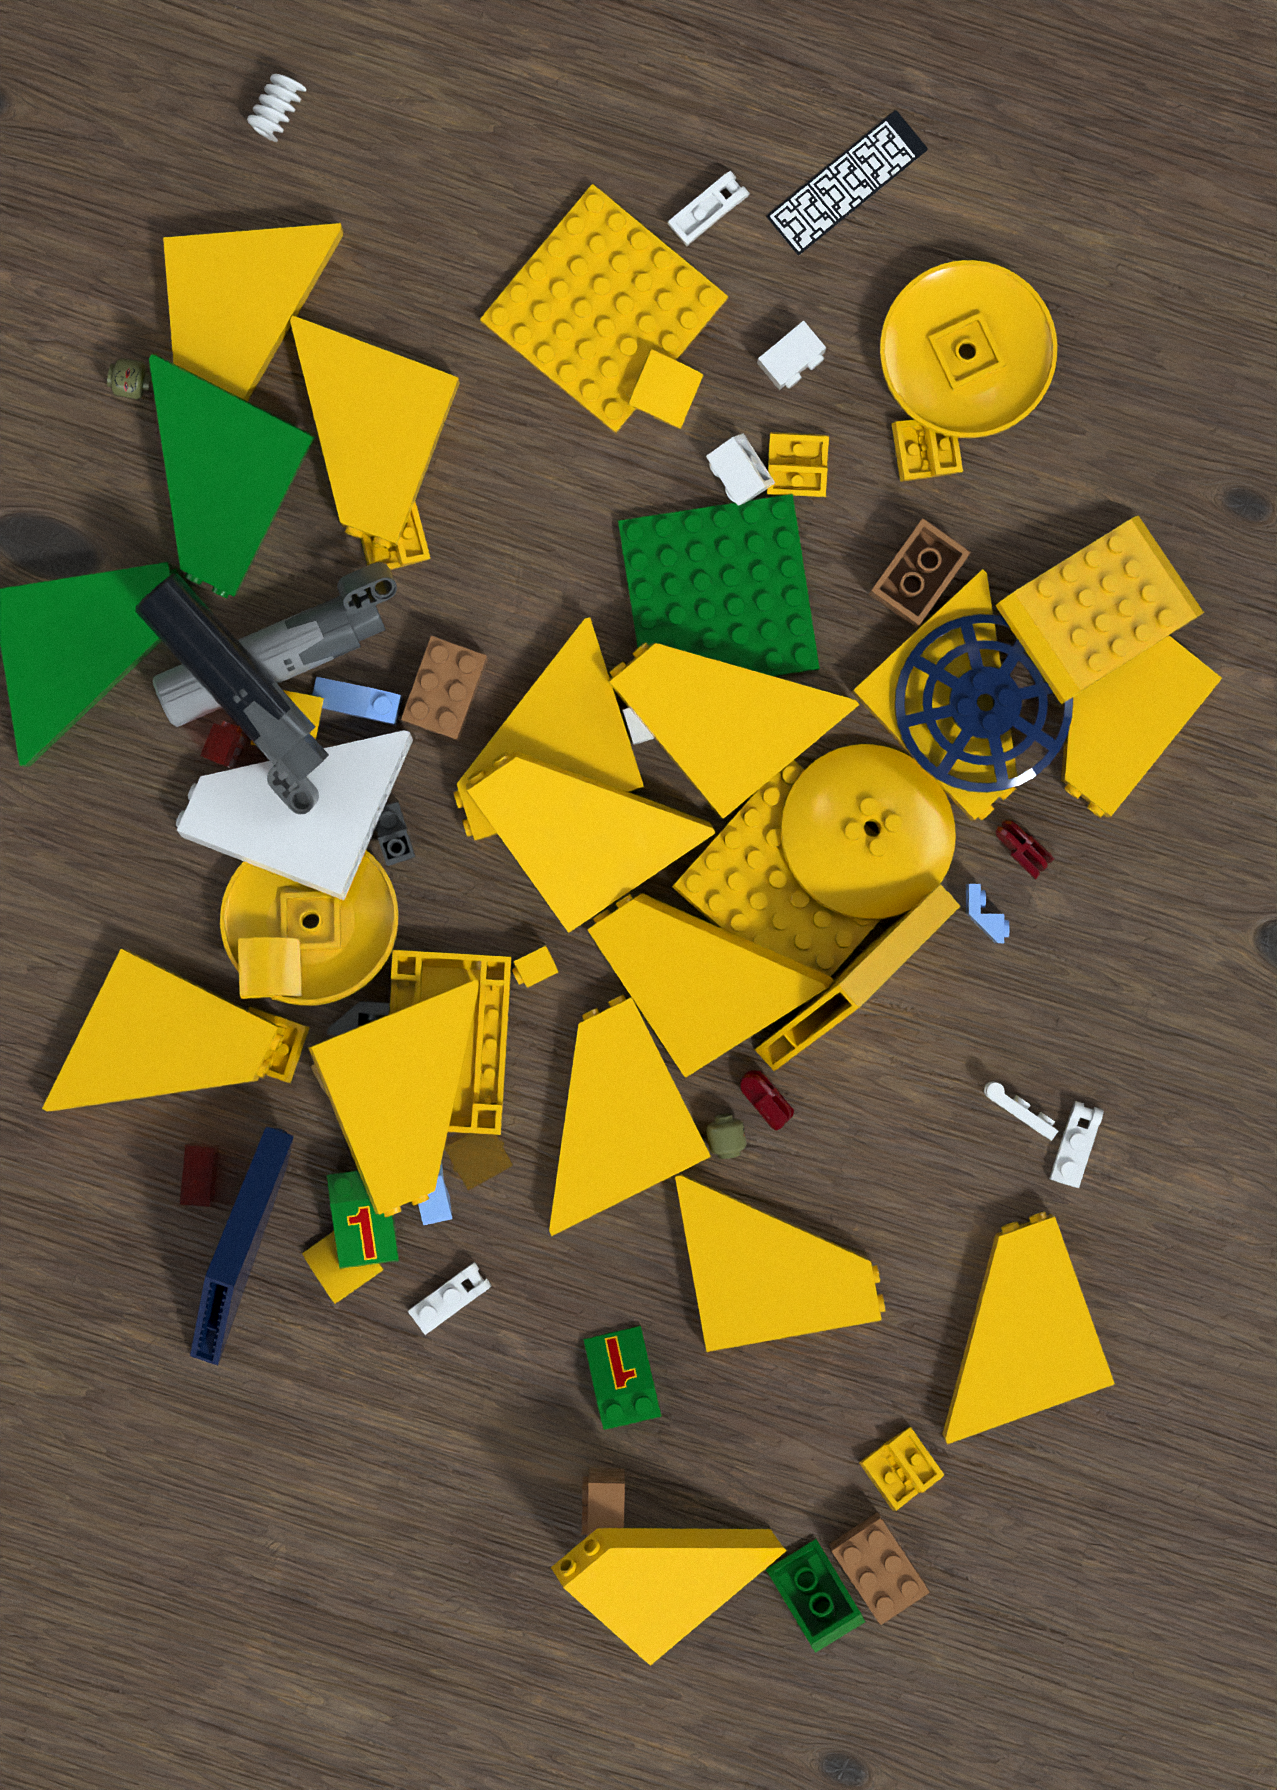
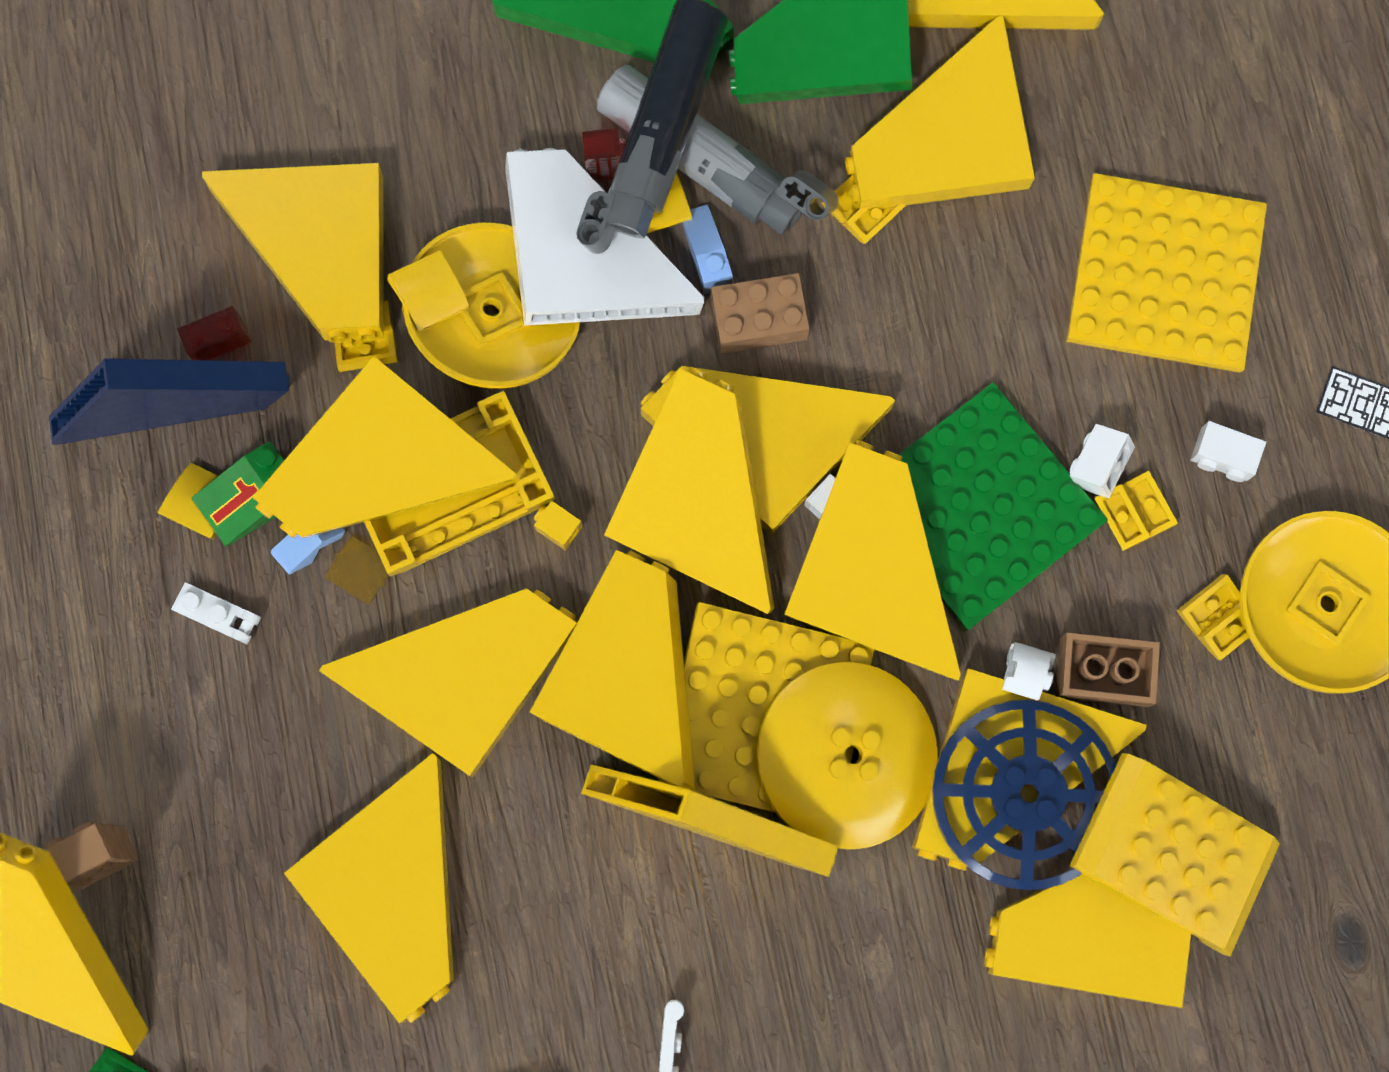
camera: 60 degrees right, 10 degrees down
(351, 1019) = (430, 392): dark grey slope -> none
(394, 835) = (607, 340): dark grey slope -> none
(622, 1377) = (220, 810): green slope -> none
(665, 389) = (1131, 359): yellow slope -> none
(707, 208) = (1308, 311): white plate -> none
(726, 1136) = (496, 781): olive head -> none
(766, 1099) = (550, 799): dark red arm -> none
(883, 641) = (1028, 670): none -> white cylinder
(991, 924) = (828, 918): light blue slope -> none
(1024, 848) = (915, 910): dark red arm -> none

